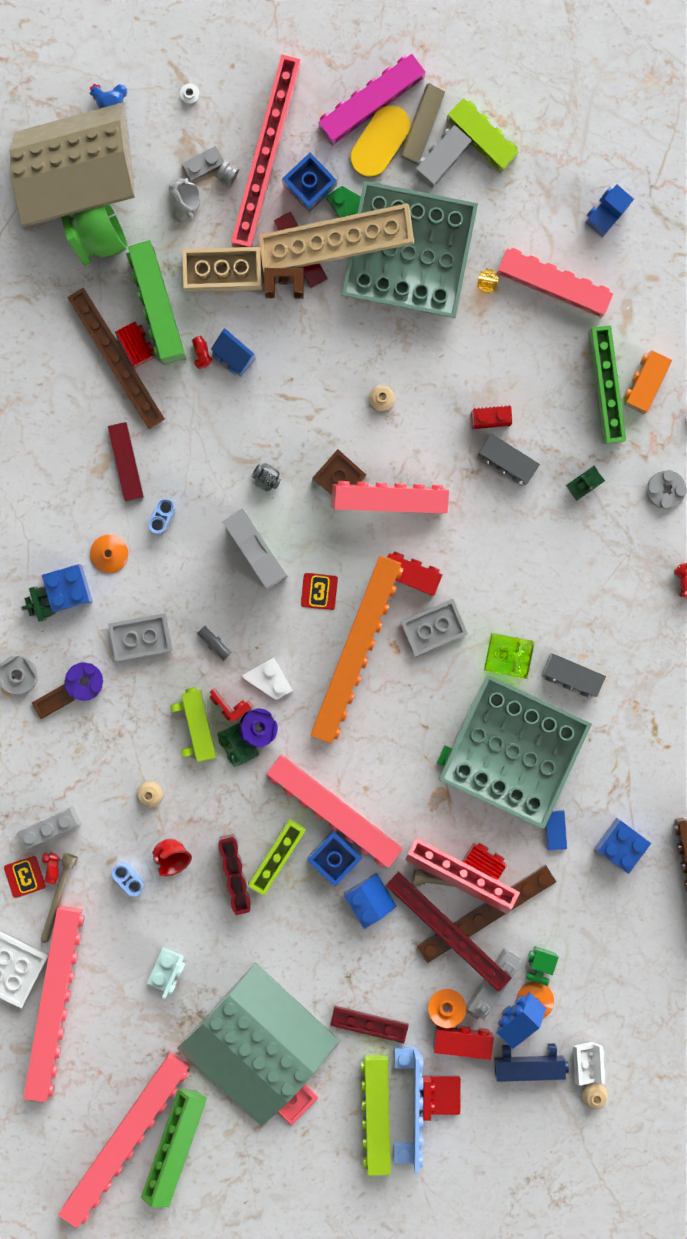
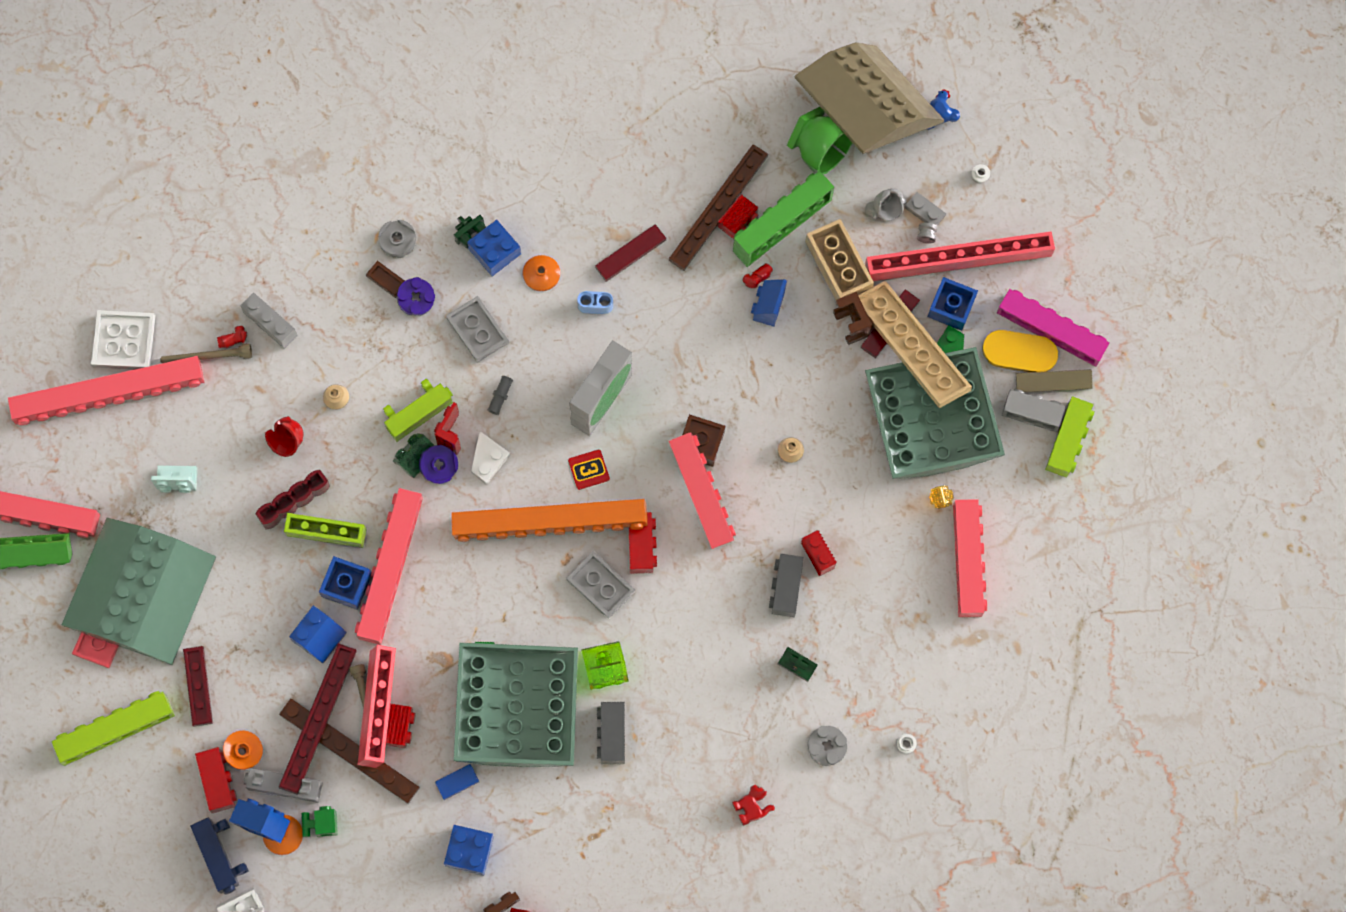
camera: 65 degrees right, 15 degrees down
(24, 876) = (214, 320): sticker -> none
(125, 881) = (248, 408): light blue beam -> none
(266, 477) = (671, 377): dark grey head -> none
(409, 1151) = (87, 775): light blue bracket -> none
(441, 1096) = (154, 780): red bracket -> none
(607, 385) = (897, 644): bright green brick -> none
(613, 205) = (1057, 578): blue brick -> none
(647, 381) = (918, 681): orange brick -> none

